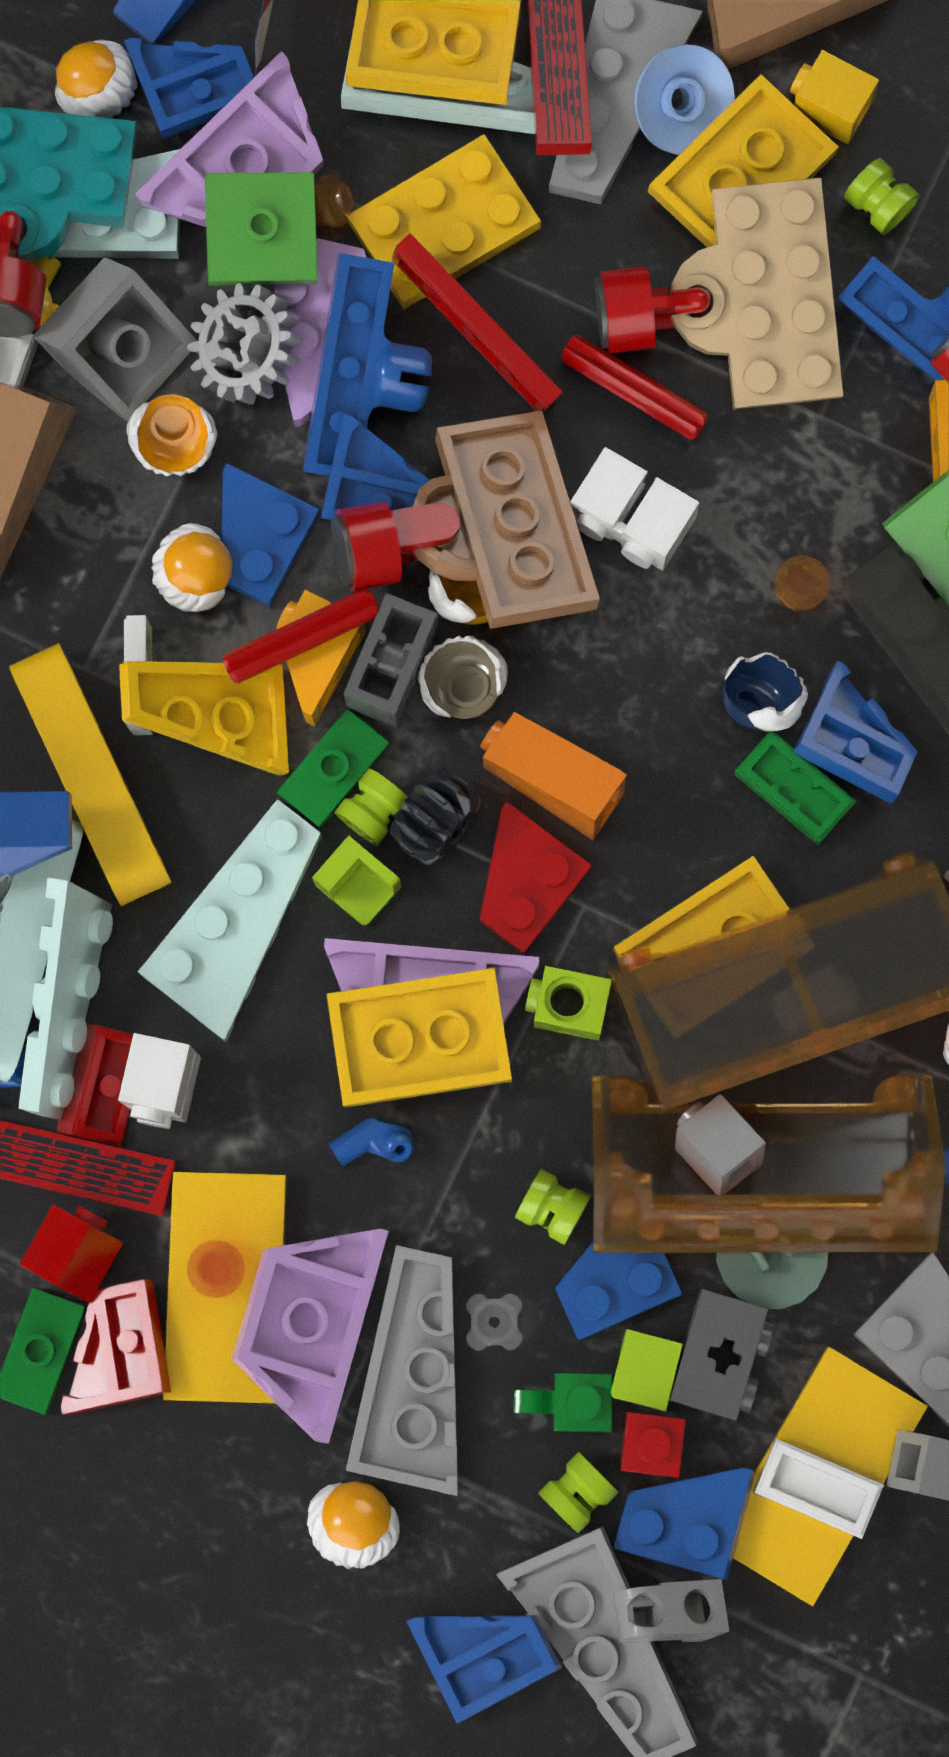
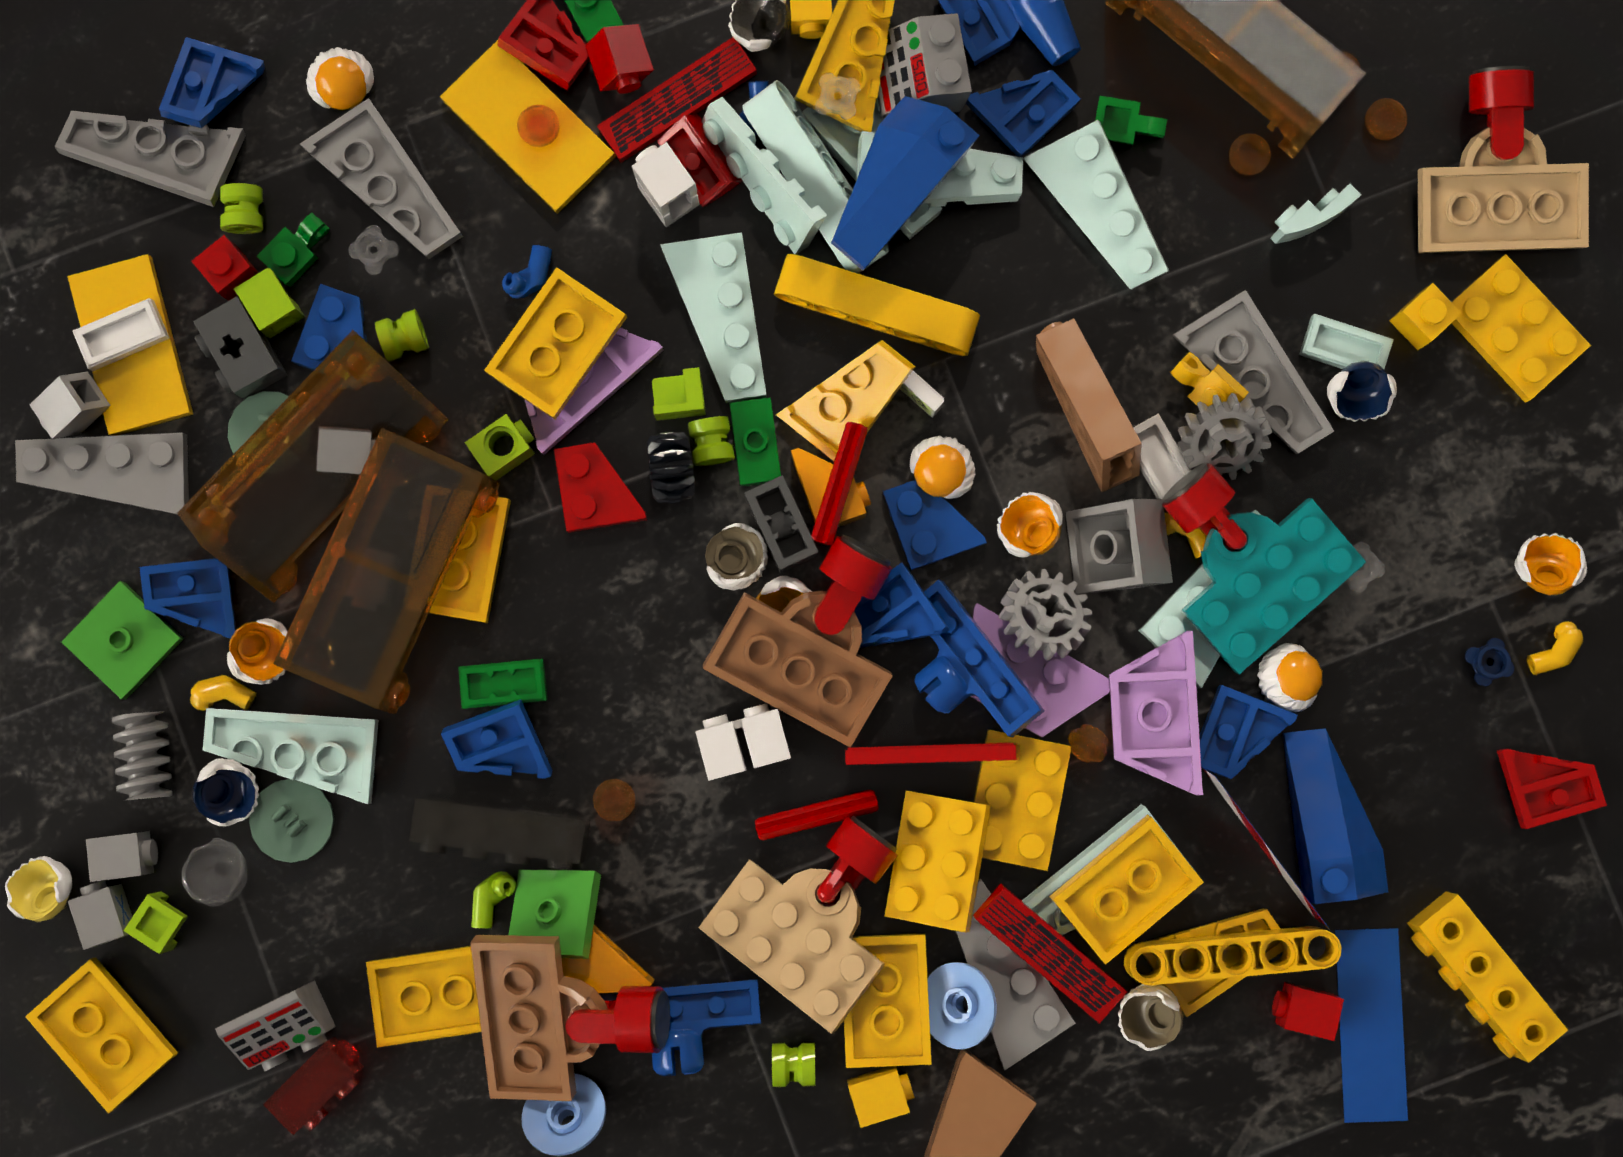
camera: 125 degrees right, 5 degrees up
(261, 228) = (1104, 683): bright green plate -> none
(307, 1323) = (464, 149): lavender wing -> none
(554, 773) = (633, 554): orange slope -> none
(568, 234) = (937, 861): none -> yellow plate
(671, 1612) = (130, 194): light grey leg -> none
(688, 1522) = (166, 249): blue wing -> none
(763, 693) = (569, 715): dark blue hair -> none

